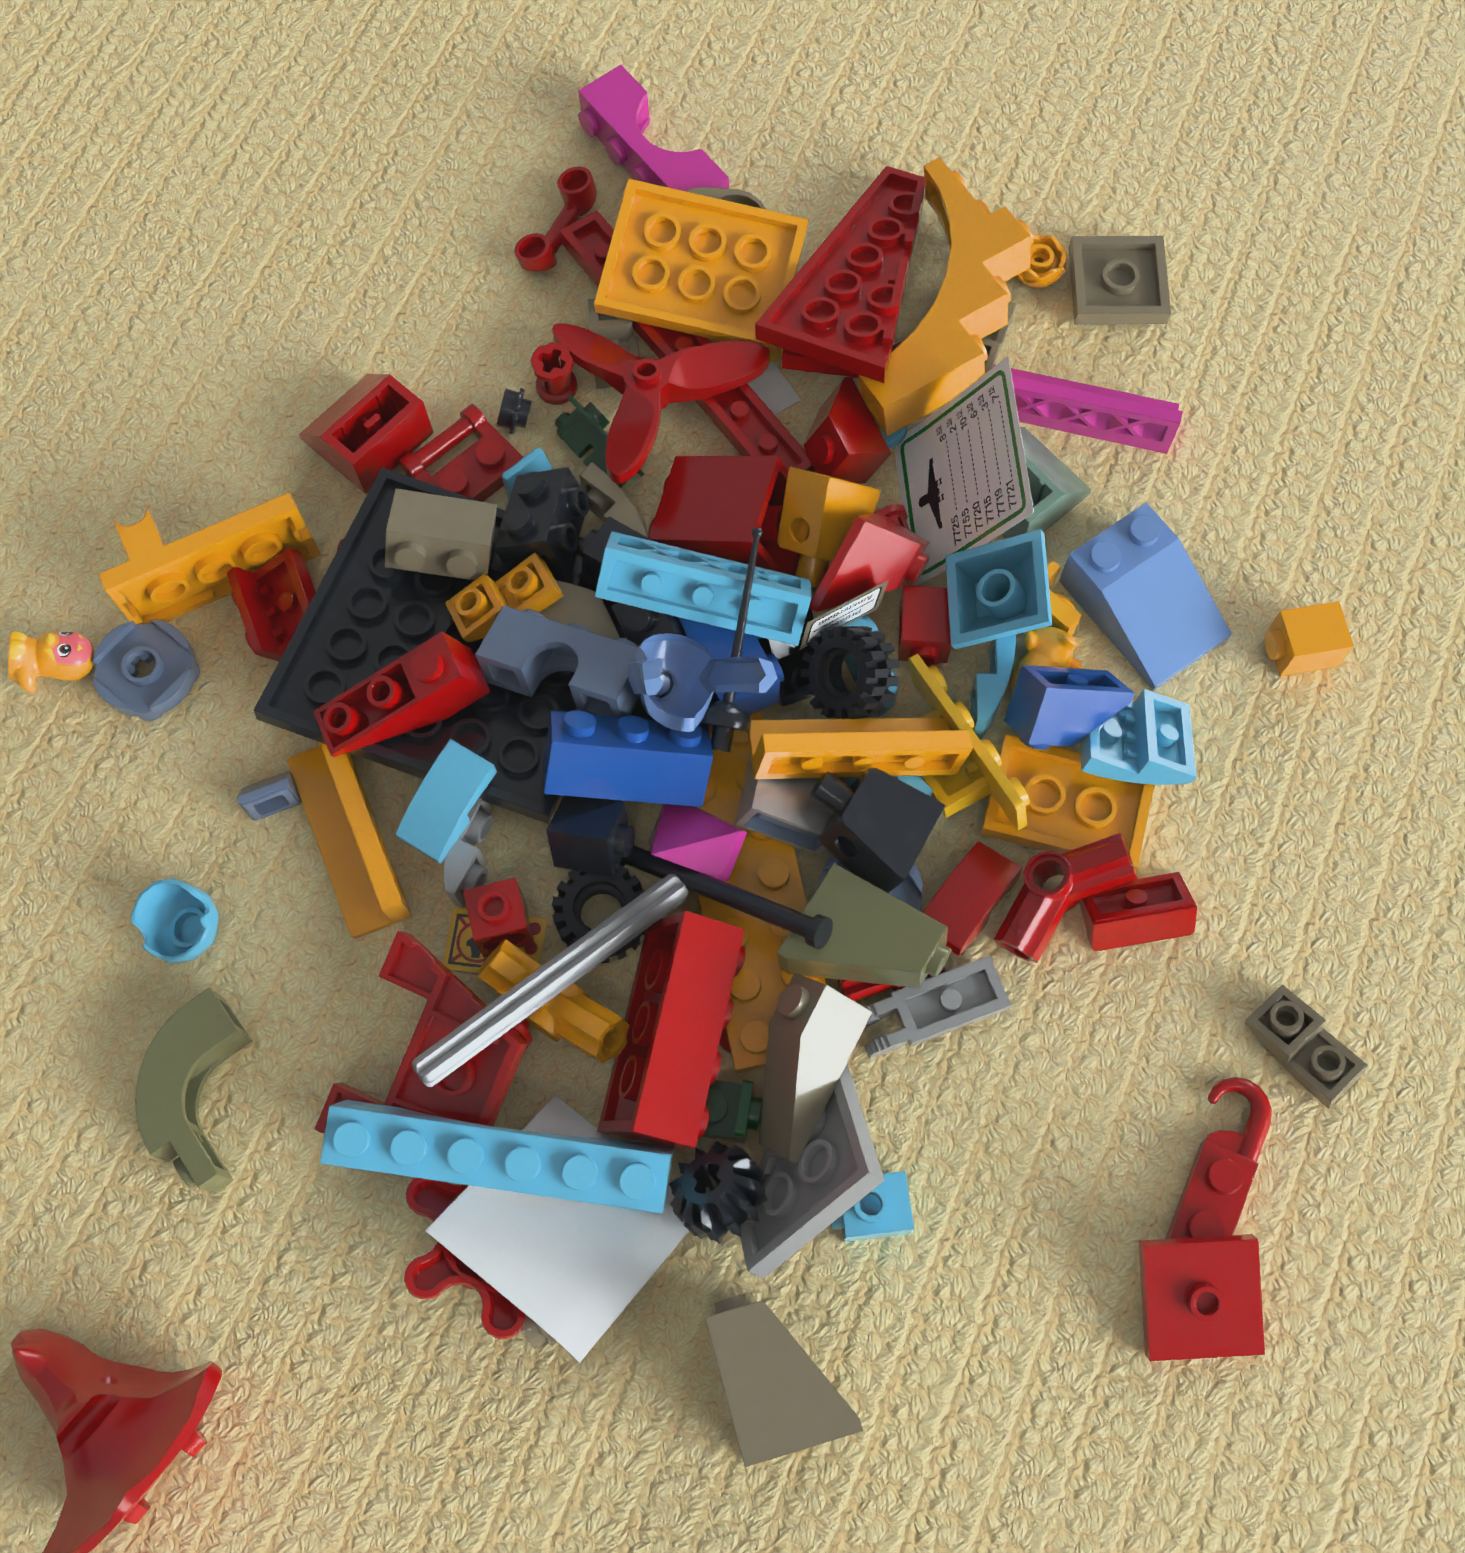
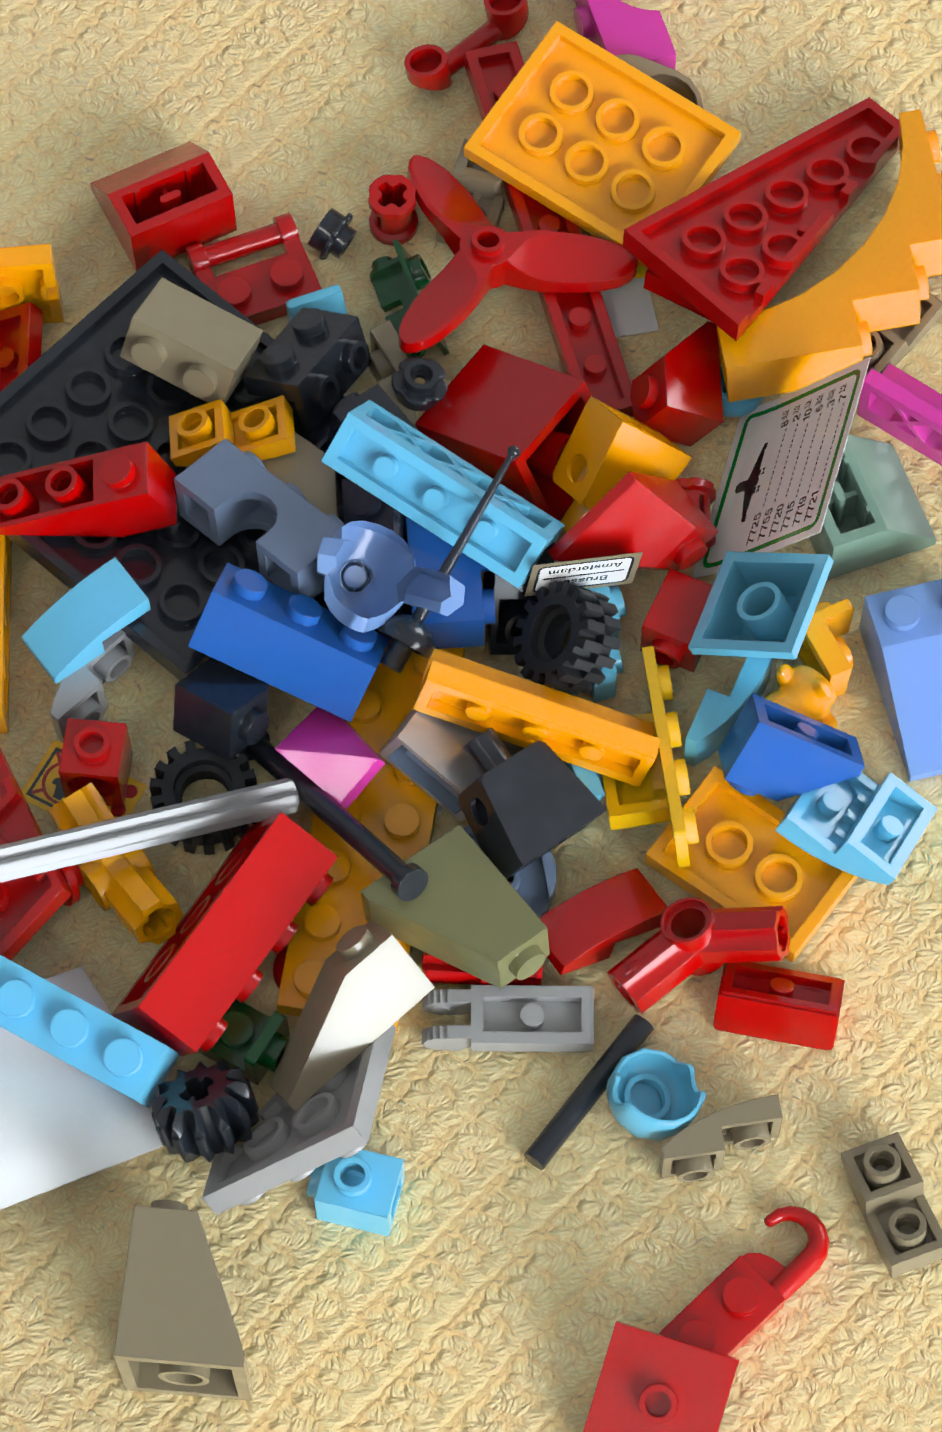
camera: 20 degrees right, 5 degrees down
(639, 515) = (415, 395): none -> black plate
(1019, 1045) = (586, 1093): none -> black bar
(1080, 1029) = (653, 1094): none -> medium azure hair
(1140, 1054) = (701, 1146): none -> dark tan slope

